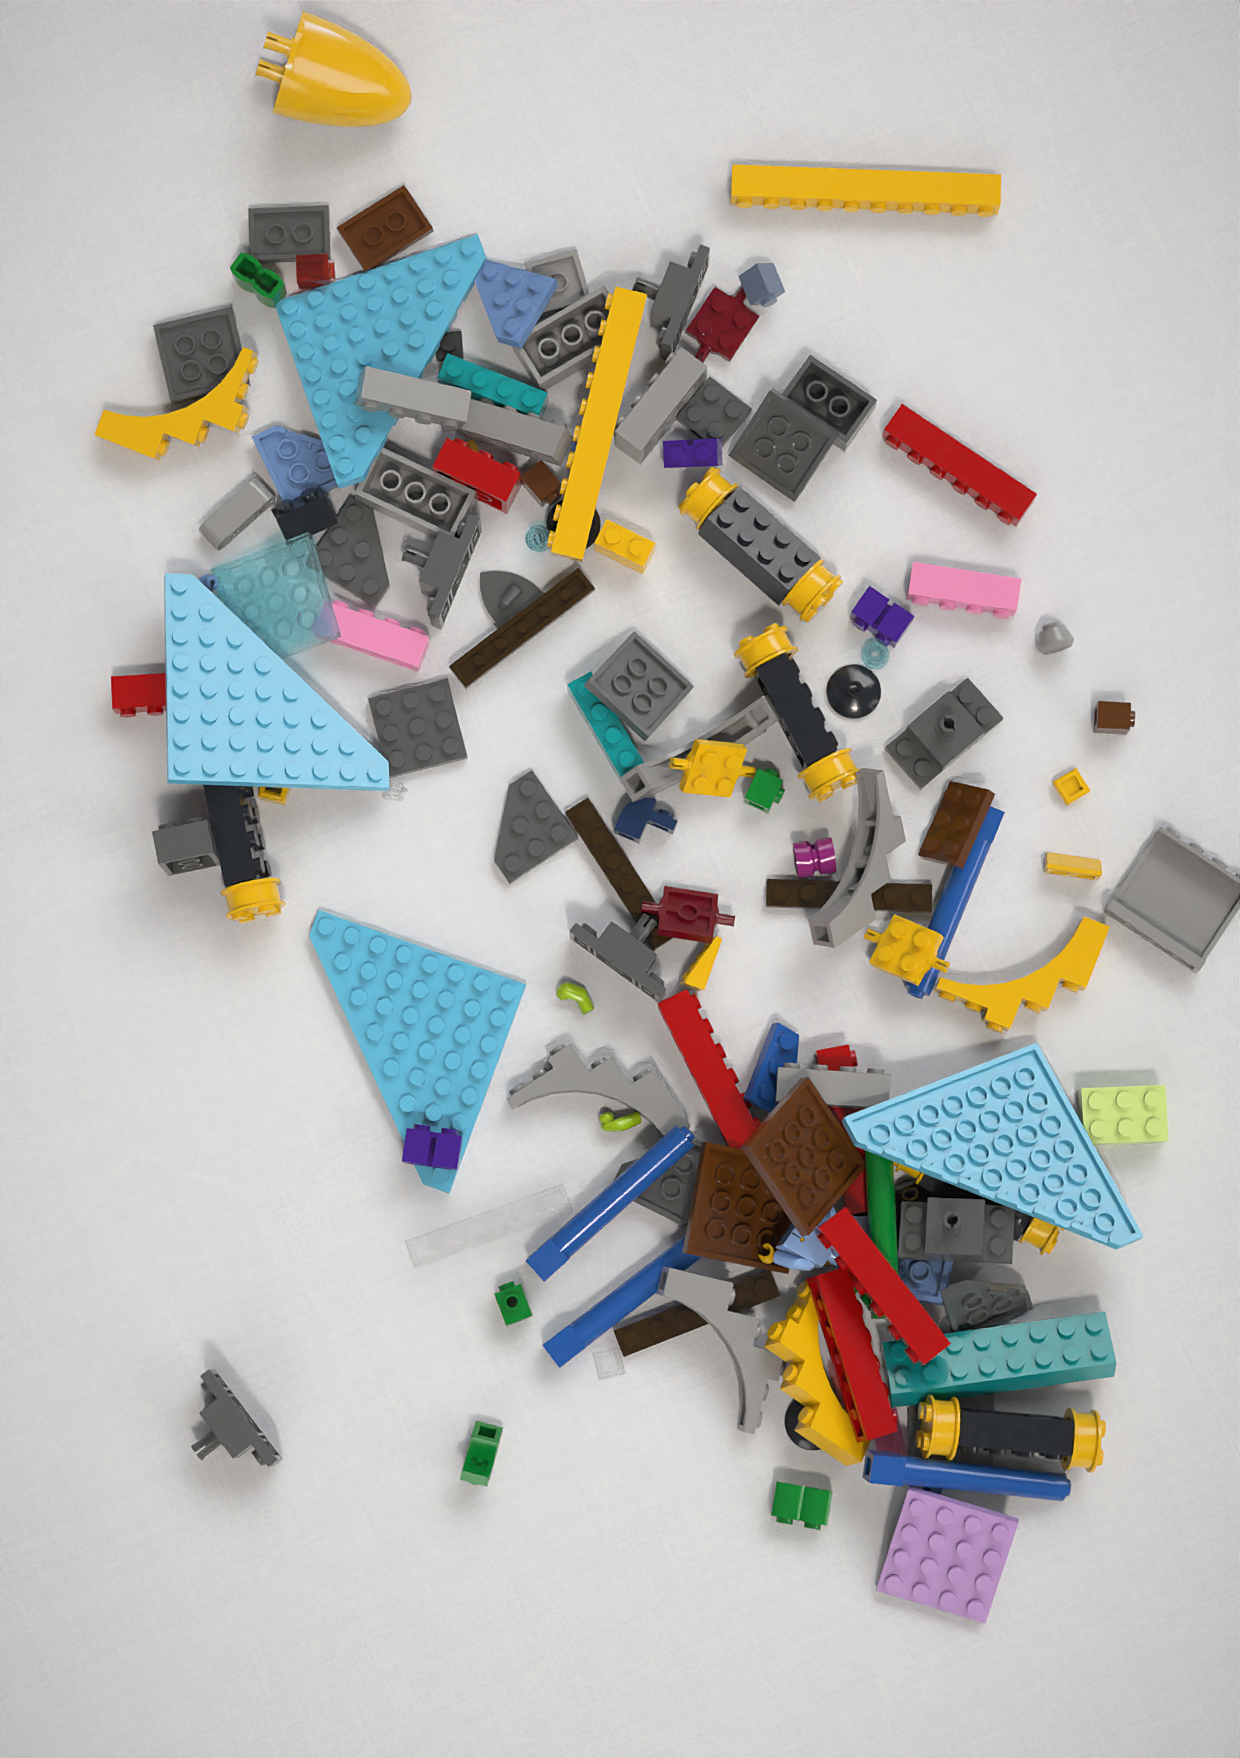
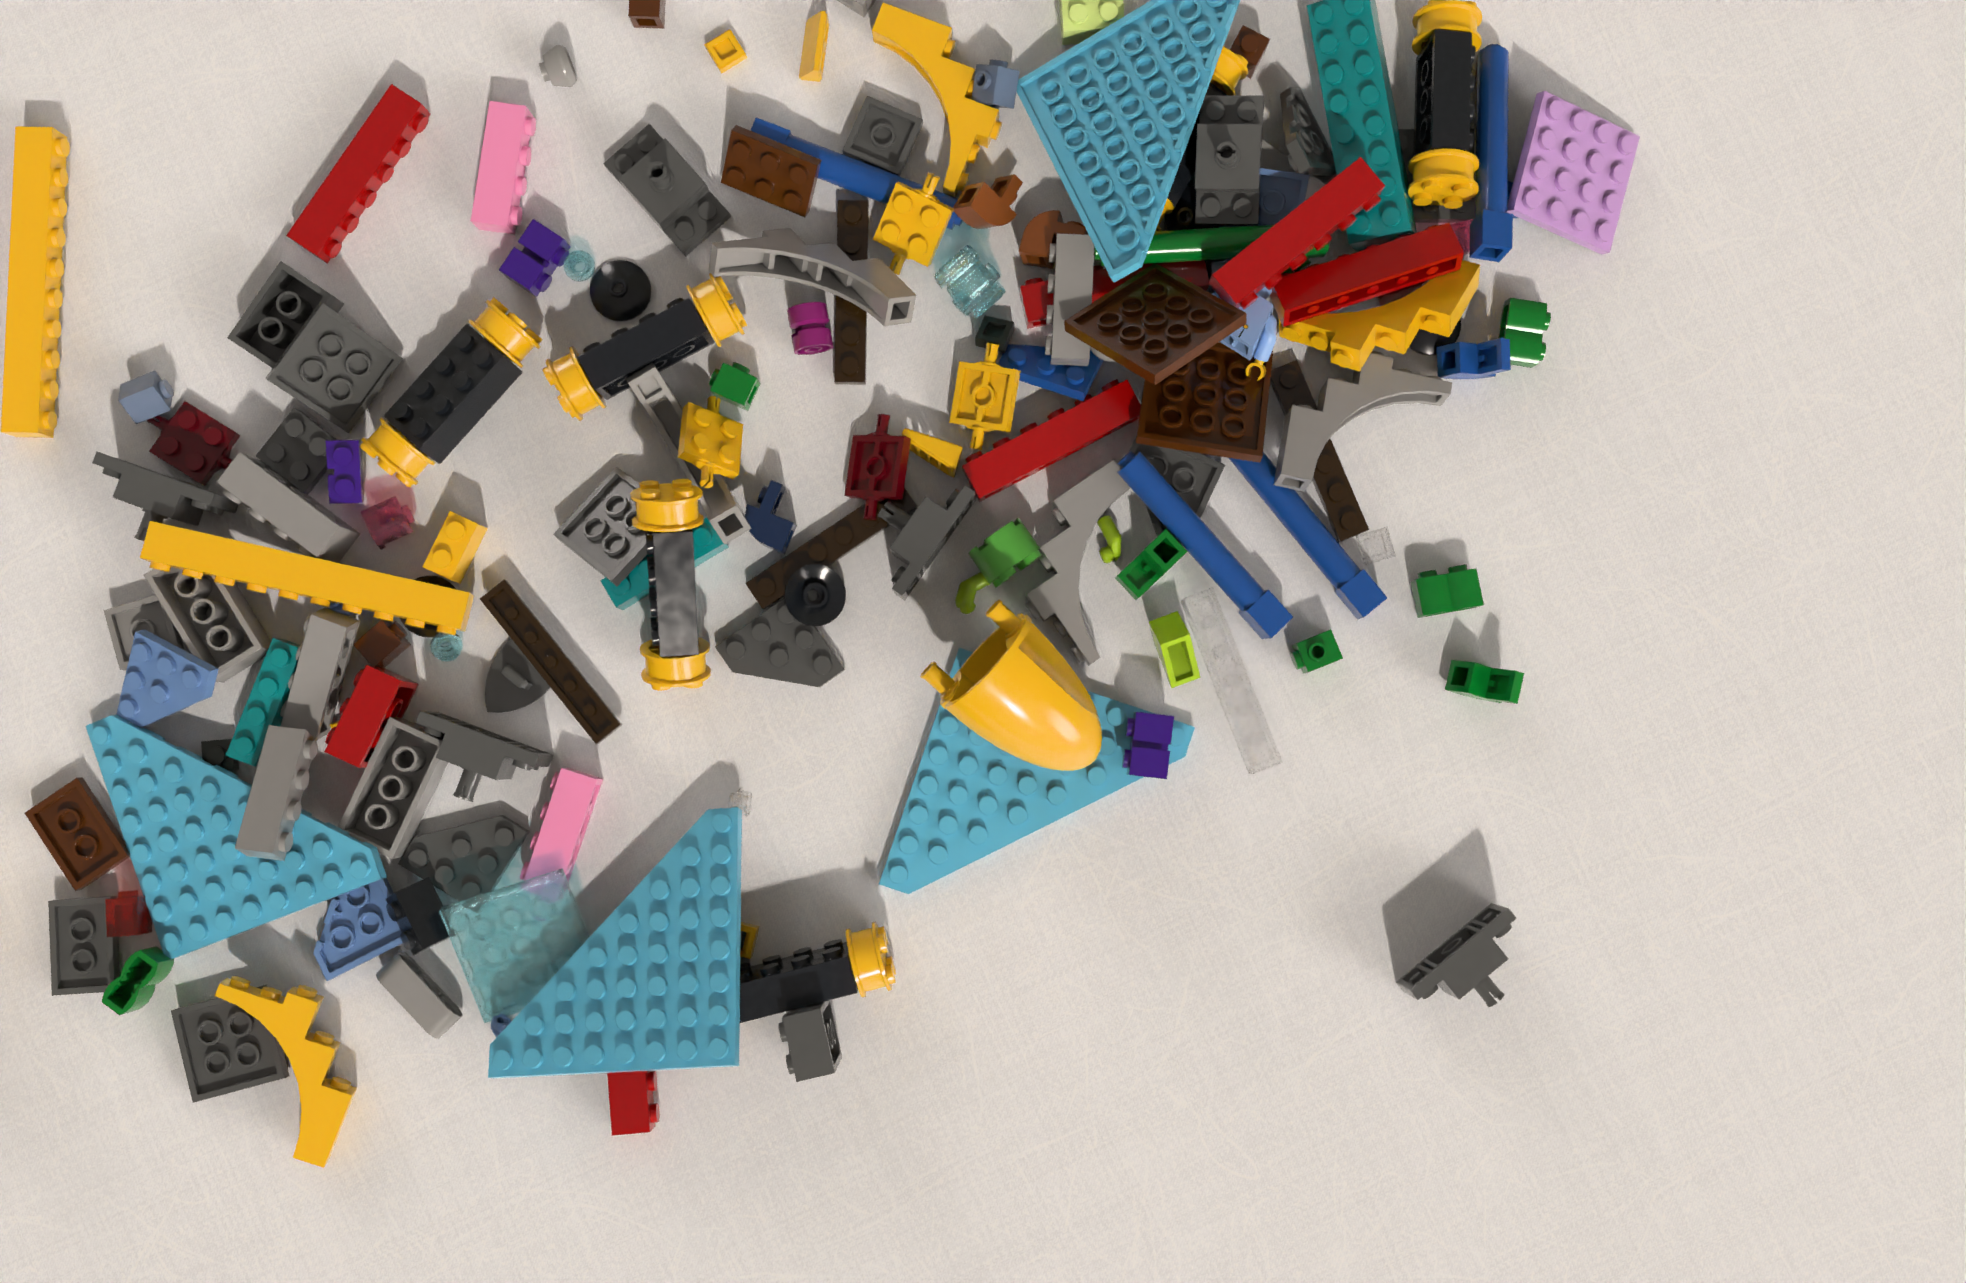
camera: 90 degrees left, 5 degrees up
(418, 728) = (667, 777): dark grey plate -> none
(476, 1034) = (1022, 696): none -> yellow windscreen
(519, 1176) = (1174, 649): none -> lime slope
(564, 1425) = (1446, 592): none -> green brick
(572, 871) = (829, 600): none -> black dish
(594, 1155) = (1151, 564): none -> green brick
(608, 1025) = (1004, 551): none -> bright green brick
(640, 729) = (667, 516): none -> brick
(653, 483) = (388, 521): none -> clear pink brick
(749, 1011) = (984, 396): none -> yellow plate
(776, 1455) = (1473, 360): none -> blue brick
(807, 1022) = (994, 332): none -> pearl dark grey plate
(852, 1000) = (970, 282): none -> clear light blue brick
(898, 1065) = (1043, 231): none -> dark orange brick
(921, 1020) = (986, 206): none -> dark orange brick
(989, 926) = (883, 136): none -> dark grey plate
(1033, 1026) = (995, 84): none -> sand blue brick
(1065, 1257) = (1250, 46): none -> reddish brown brick

